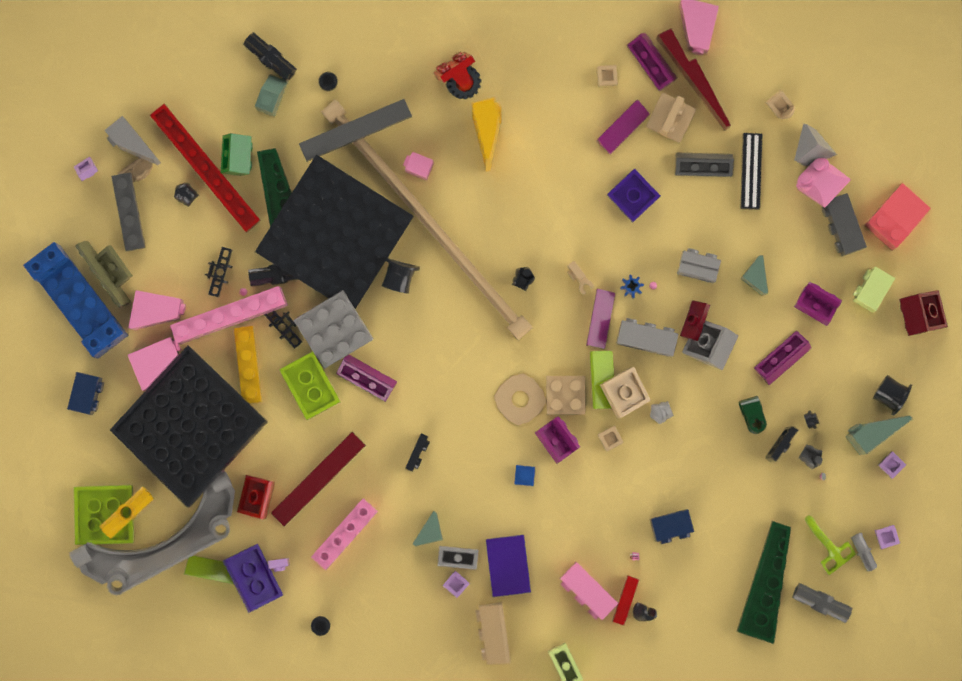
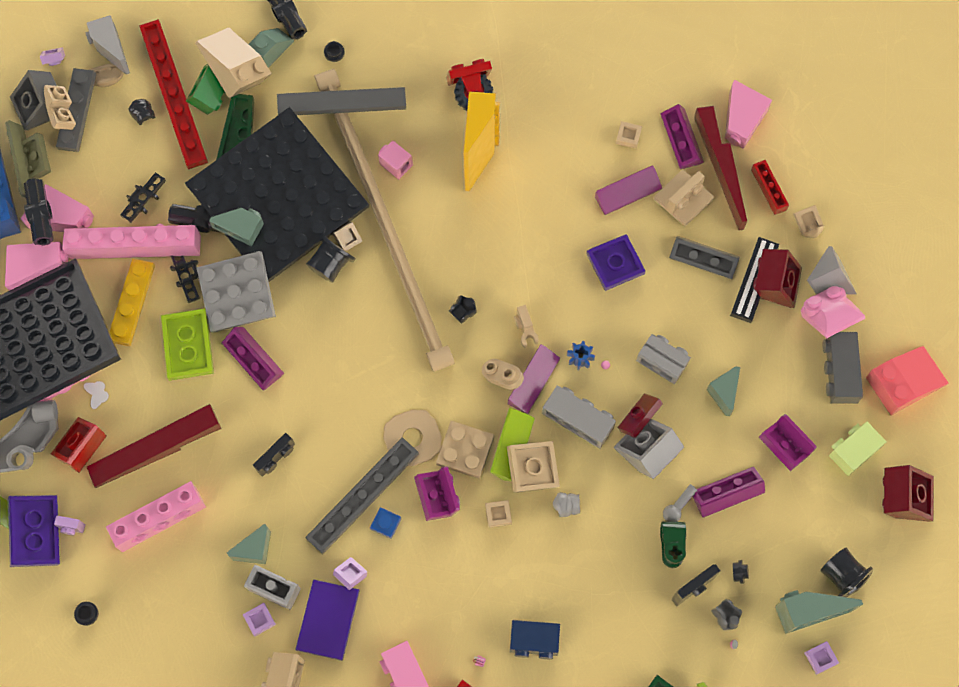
camera: 20 degrees right, 15 degrees down
(91, 214) = (30, 99): none -> dark grey slope
(115, 217) = (58, 106): none -> tan slope
(143, 318) = (38, 212): none -> black piece
(249, 125) = (233, 61): none -> tan slope
(253, 450) = (97, 391): none -> white sticker
(317, 274) = (239, 224): none -> sand green slope
(405, 249) = (347, 236): none -> tan plate
(498, 460) = (362, 495): none -> dark grey tile
(512, 525) = (350, 573): none -> lavender plate
(573, 324) = (498, 372): none -> tan plate
(739, 84) = (770, 187): none -> red piece
(745, 389) = (672, 513): none -> light grey bar
(770, 166) = (778, 277): none -> dark red slope

